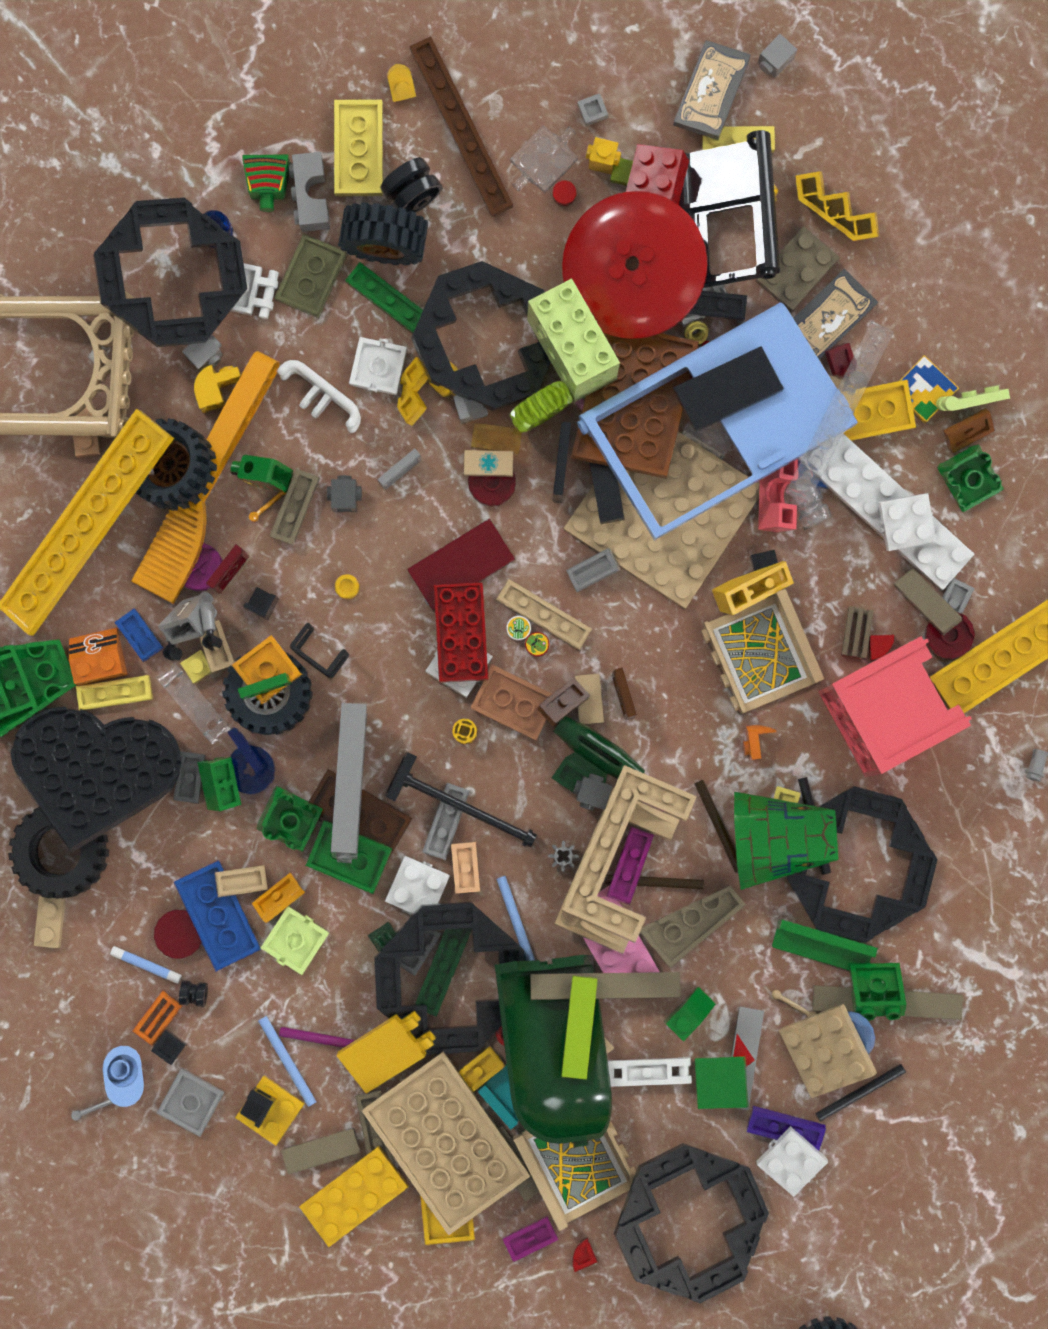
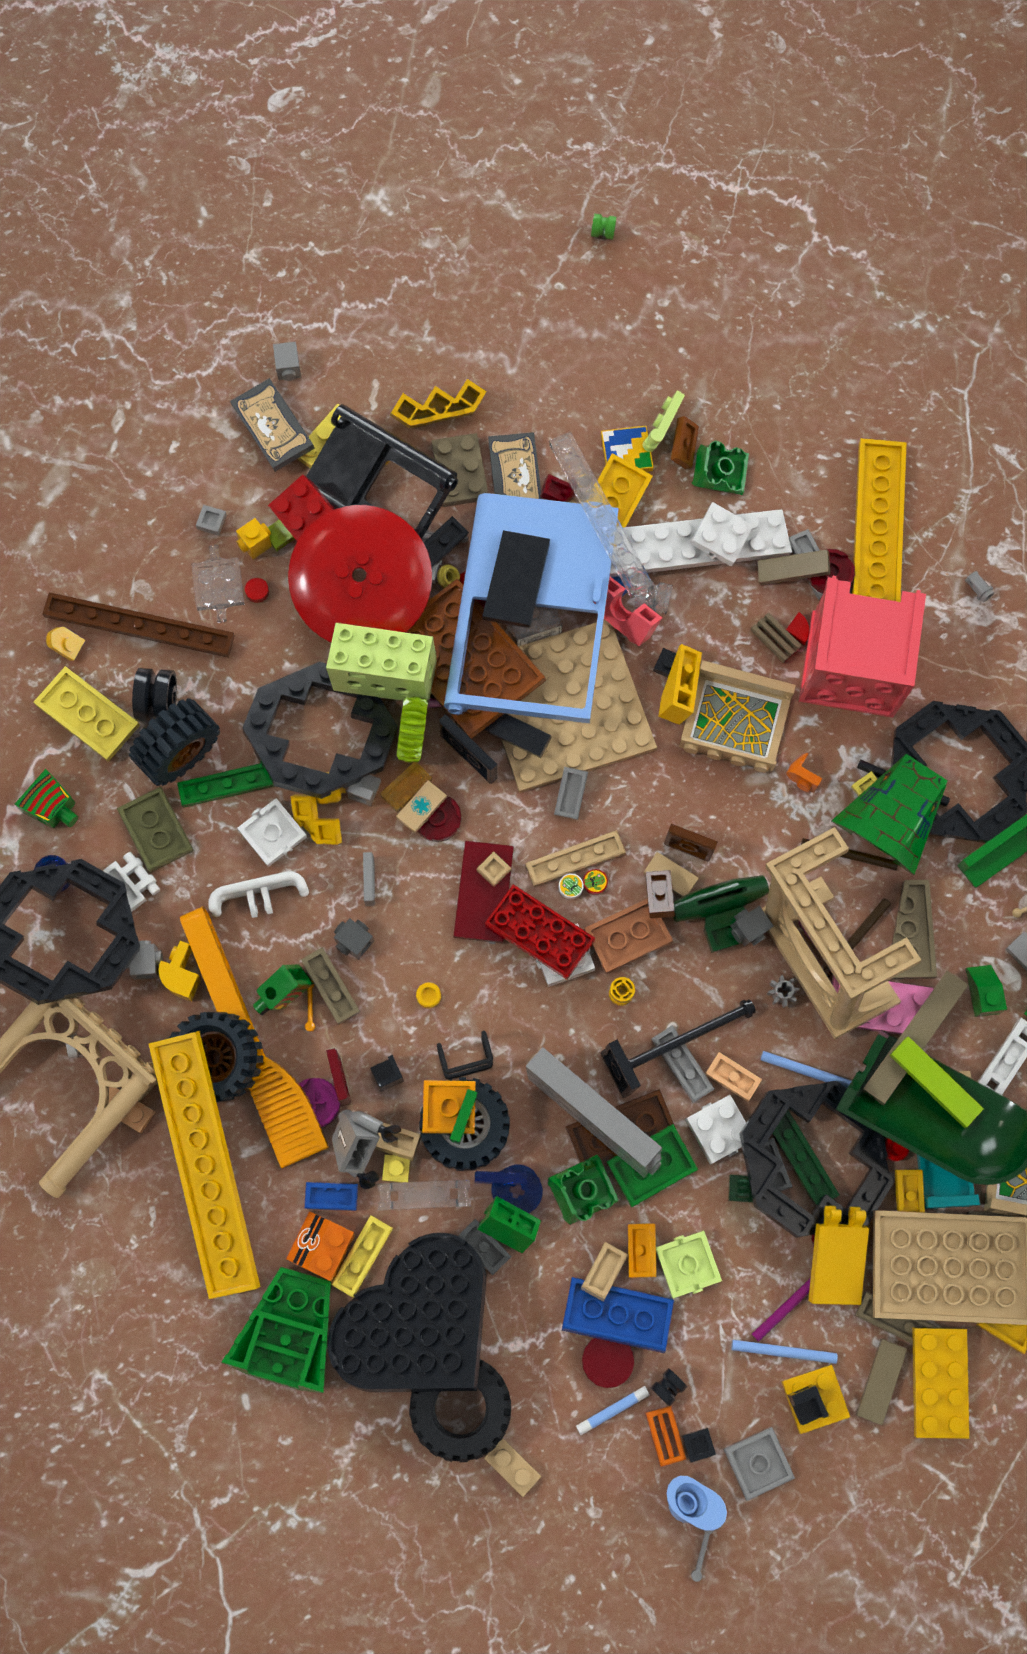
camera: 55 degrees left, 10 degrees down
(307, 171) = (105, 789): light grey arch -> none
(483, 558) = (493, 869): none -> tan tile

